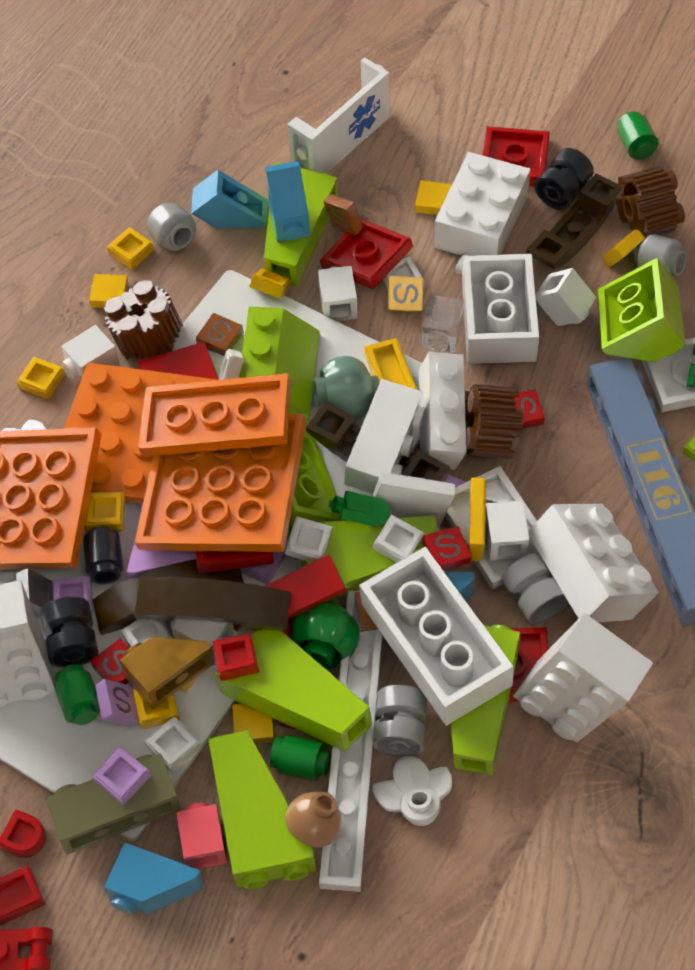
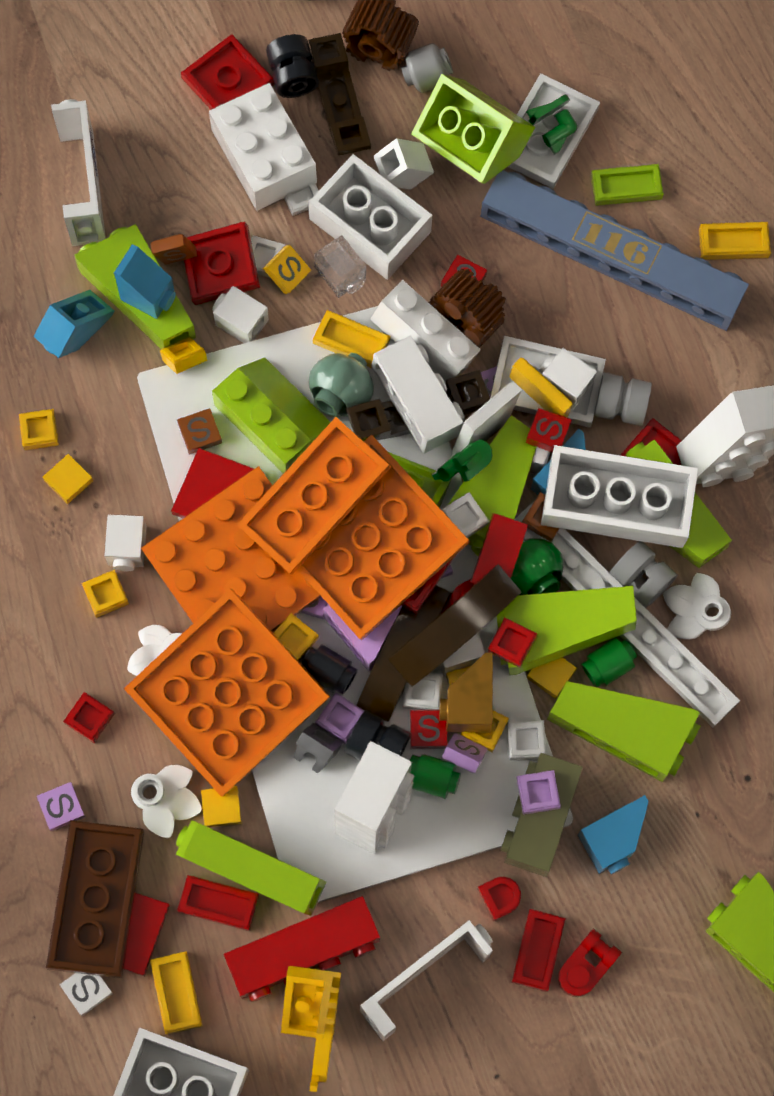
camera: 55 degrees left, 15 degrees up
(143, 321) = (122, 481): reddish brown brick -> none
(171, 226) = (54, 383): light grey head -> none
(201, 836) = (612, 774): coral brick -> none
(231, 365) = (257, 450): white tile -> none
(314, 818) = (674, 689): medium nougat brick -> none
(397, 539) = (513, 457): white tile -> none
(431, 197) = (211, 170): yellow tile -> none
(592, 562) = (643, 345): white brick -> none
(622, 248) = (394, 85): yellow tile -> none

